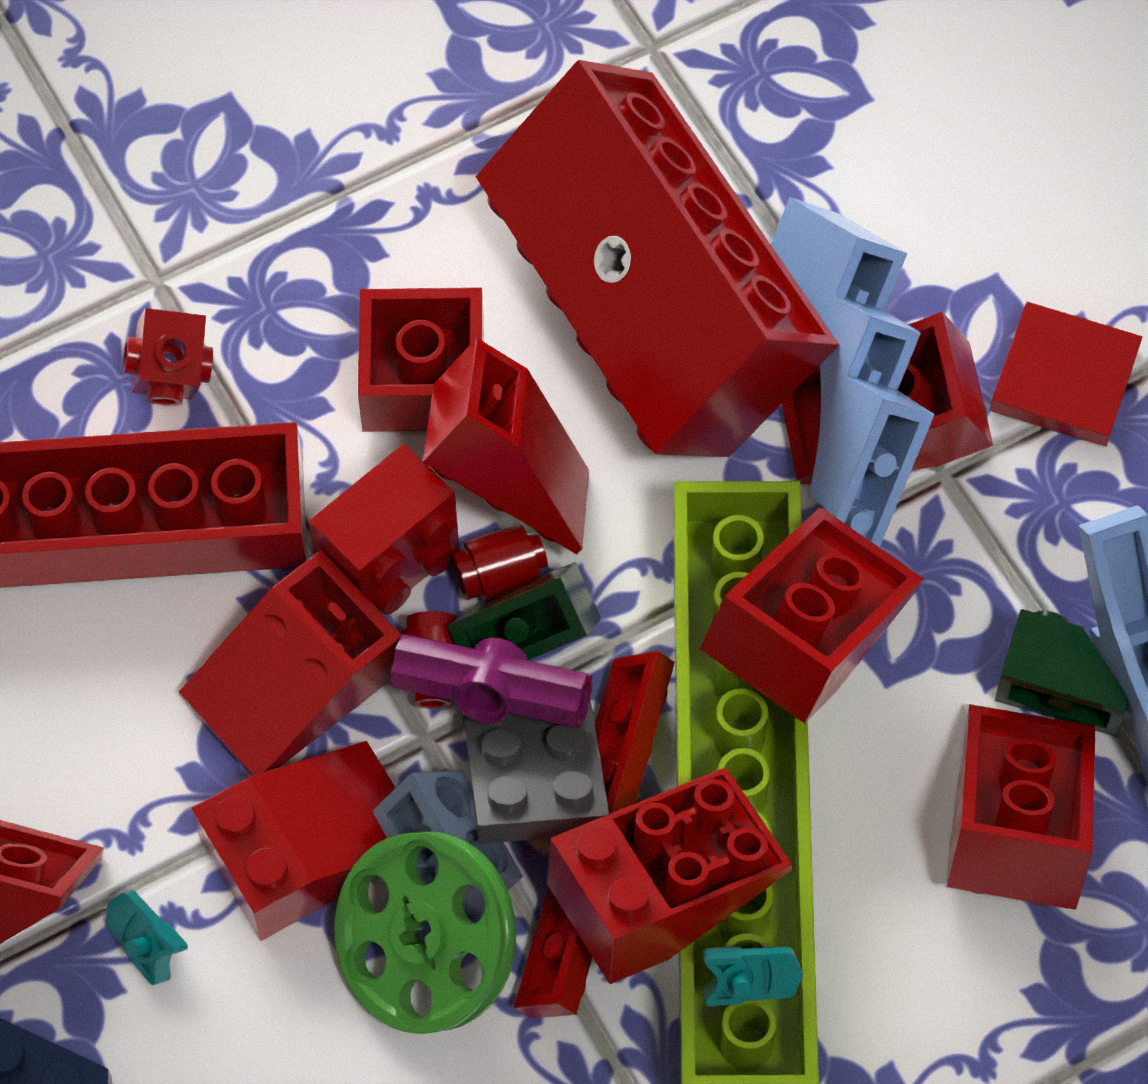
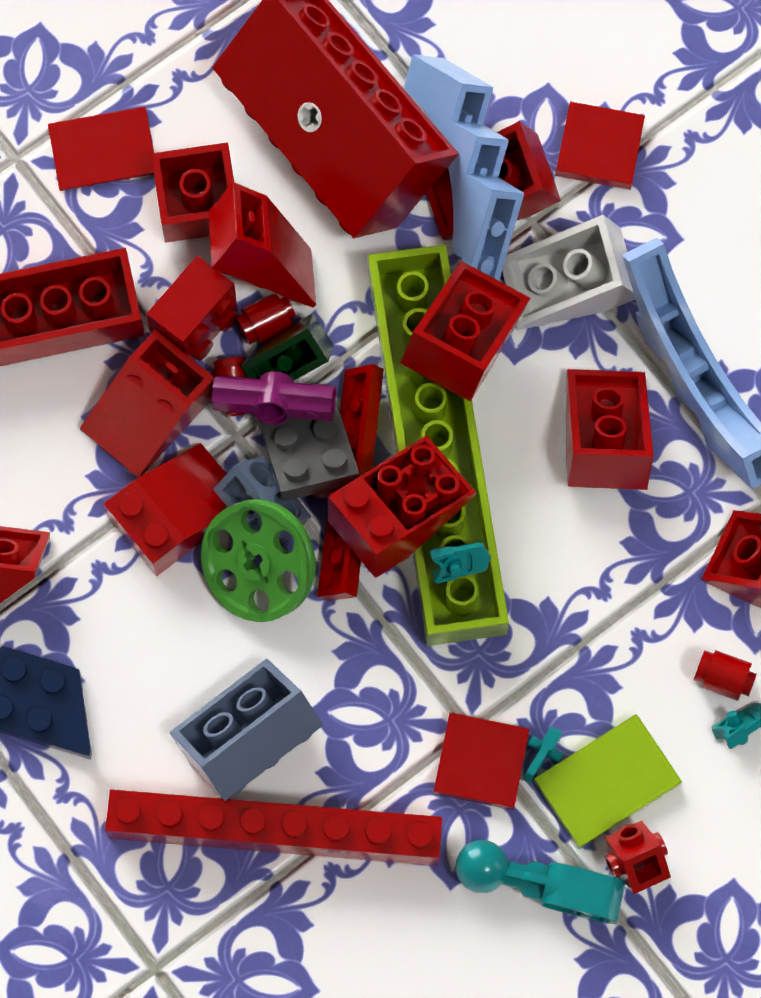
camera: 10 degrees left, 10 degrees up
(143, 936) = (85, 584): teal piece -> none
(173, 337) = (43, 201): red brick -> none
(289, 282) = (102, 148): none -> red window
(994, 556) = (571, 273): none -> white slope
(1060, 674) = (619, 343): dark green slope -> none

